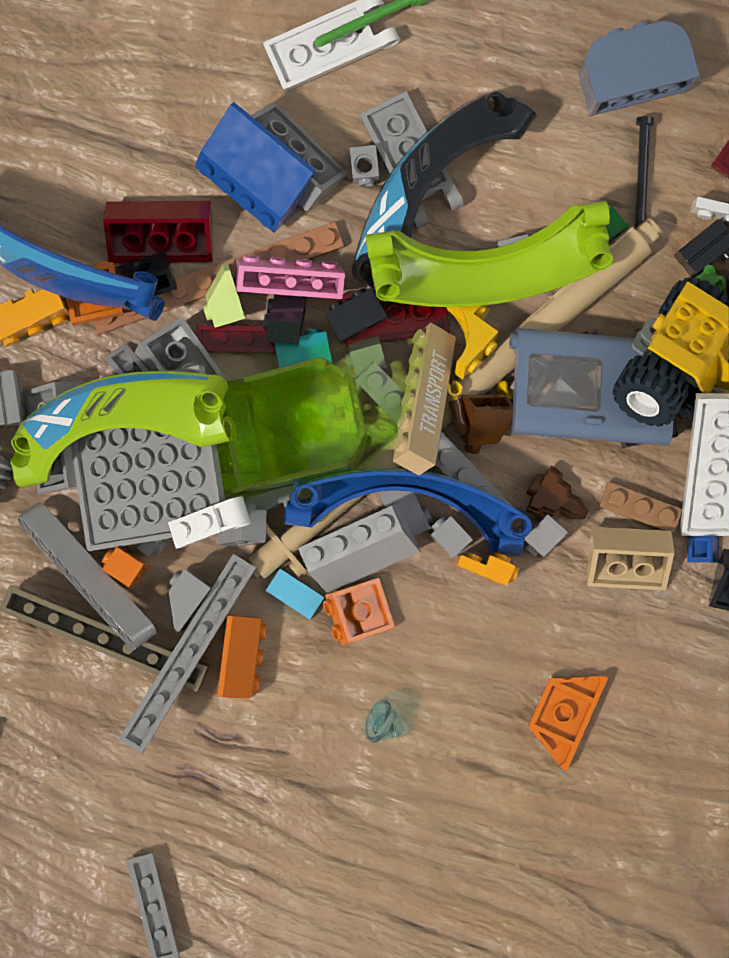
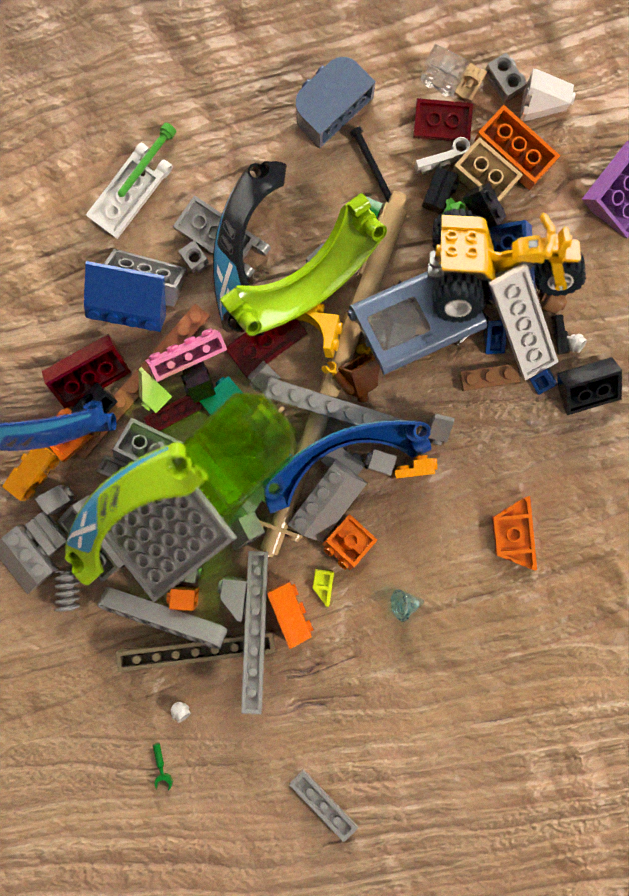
camera: 30 degrees left, 0 degrees up
(38, 364) = (55, 499): none -> light grey slope
(45, 700) = (180, 711): none -> white plate
(209, 522) = (221, 540): white plate -> none
(295, 594) = (302, 554): medium azure tile -> none
(299, 645) = (323, 584): none -> neon yellow tile
(355, 315) = (241, 355): black brick -> none
(424, 399) = (316, 384): tan brick -> none
(554, 497) = (431, 400): reddish brown rock -> none
(629, 558) = (501, 412): tan slope -> none
(672, 463) = (494, 337): none -> blue slope

